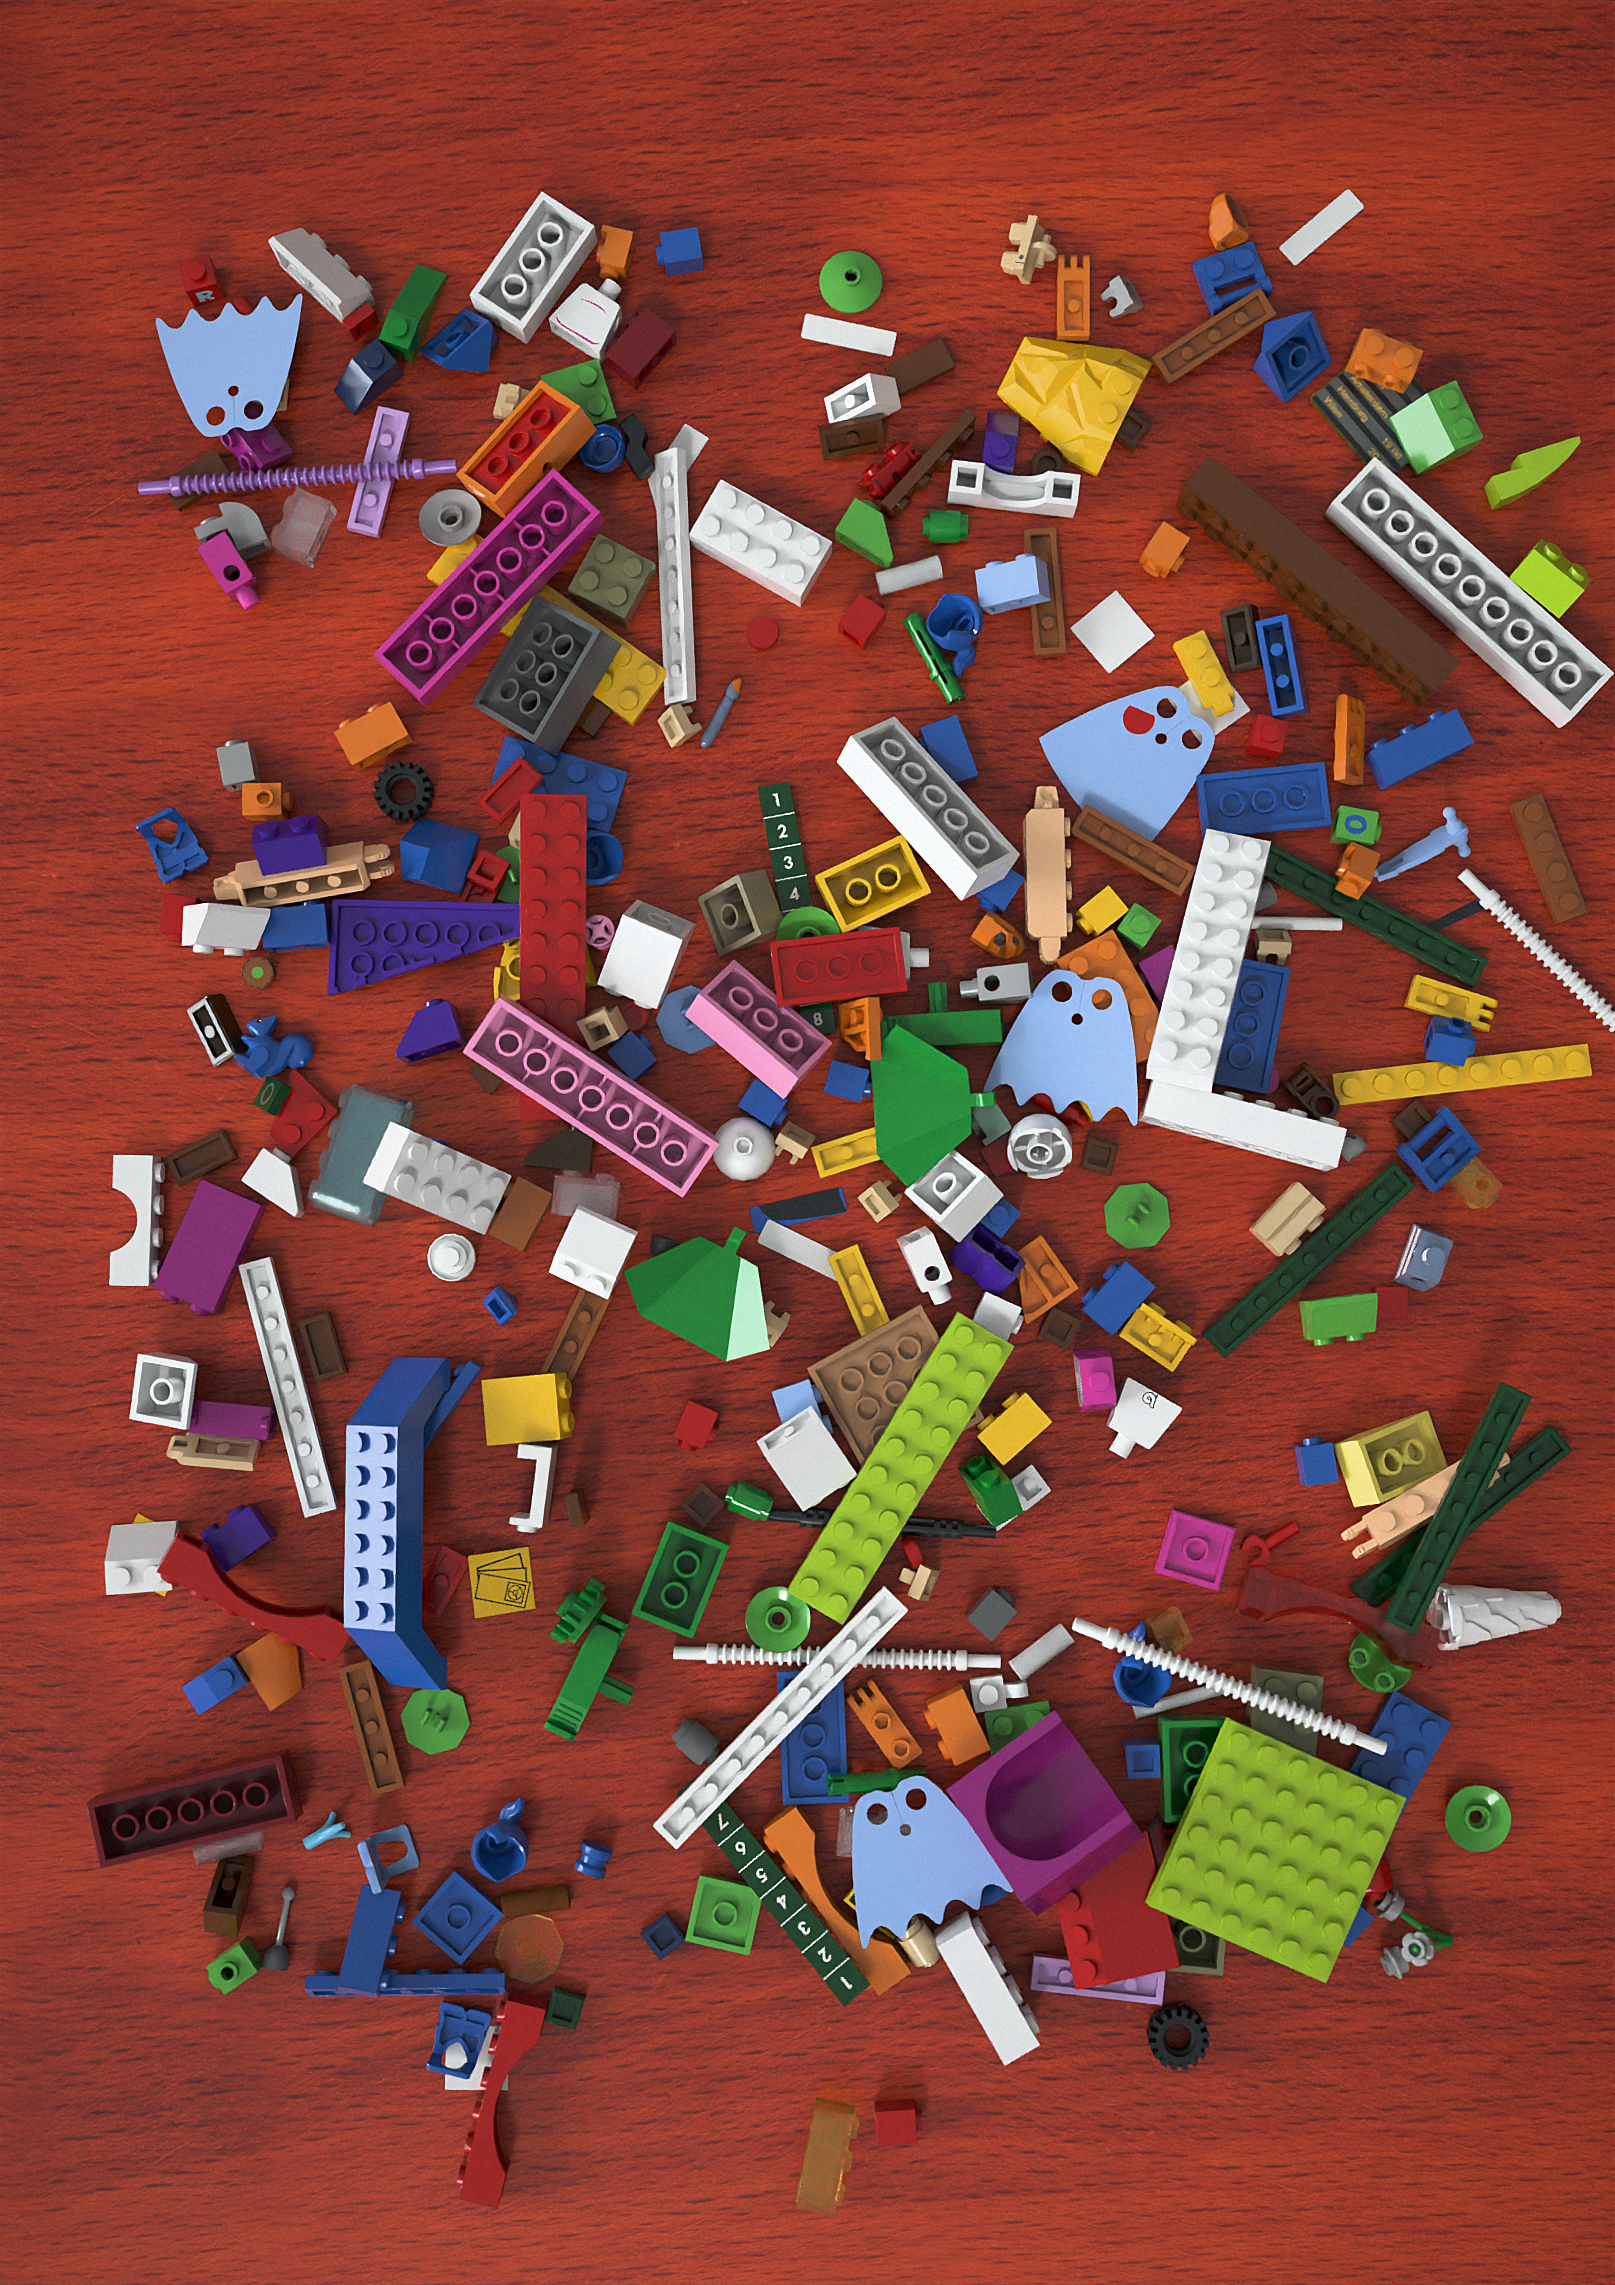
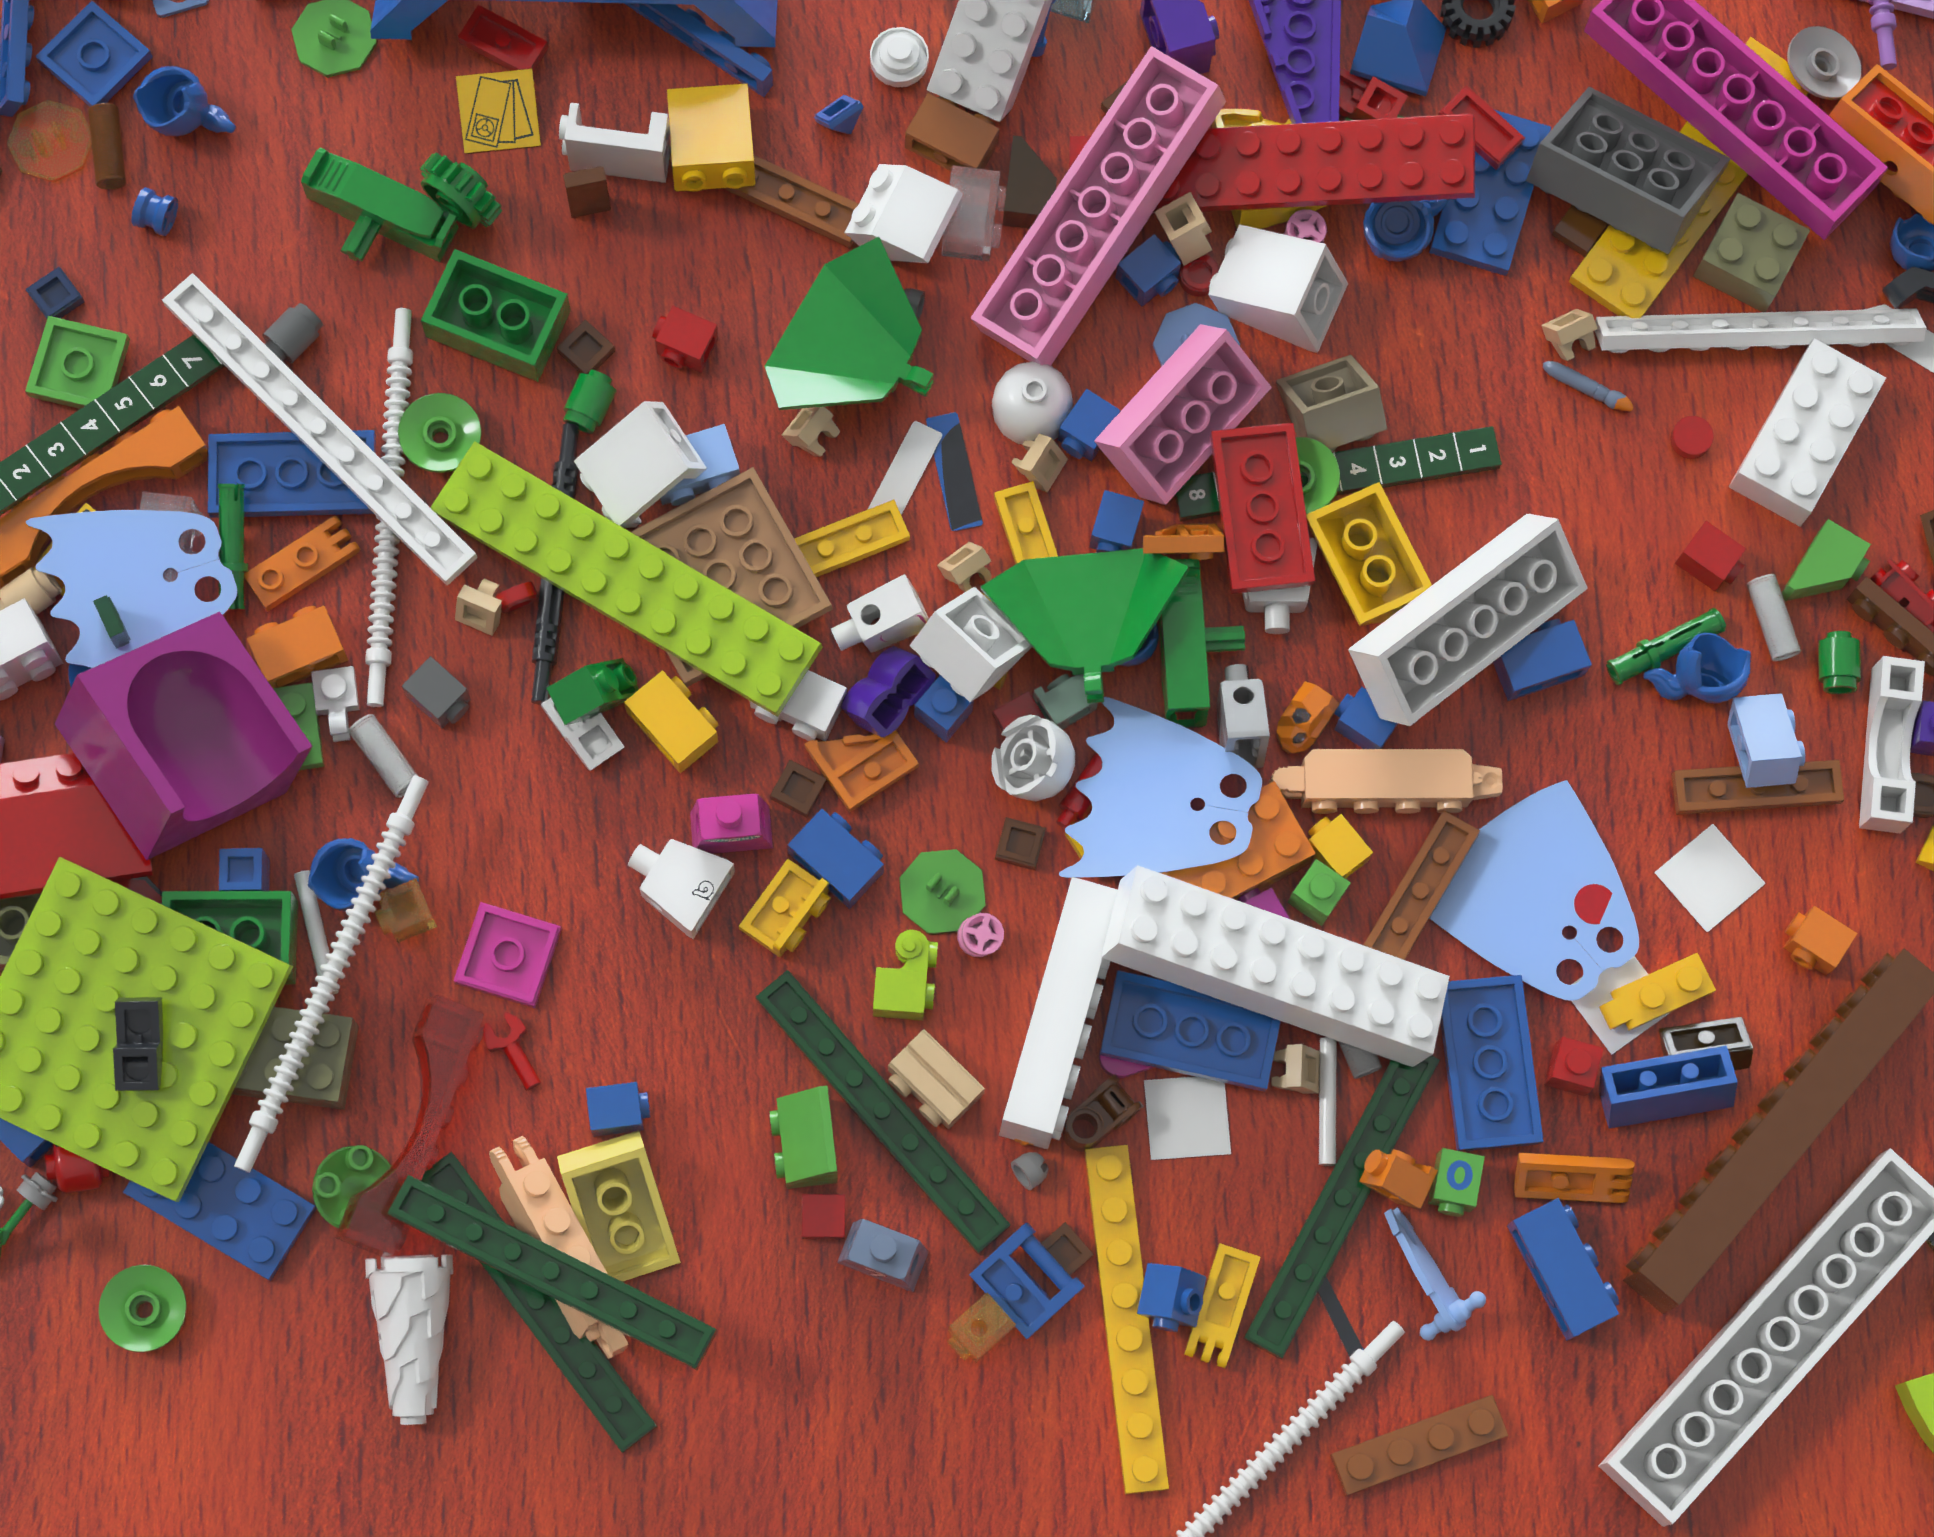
camera: 85 degrees right, 10 degrees down
(950, 1874) = (112, 621): none -> dark green tile
(1180, 1182) = (988, 935): none -> bright pink wheel
(1219, 1243) = (904, 991): none -> lime brick
(1295, 1834) = (139, 1044): none -> black slope
(1308, 1030) = (1186, 1118): none -> white sticker
(1551, 577) = (1798, 1440): lime slope -> none

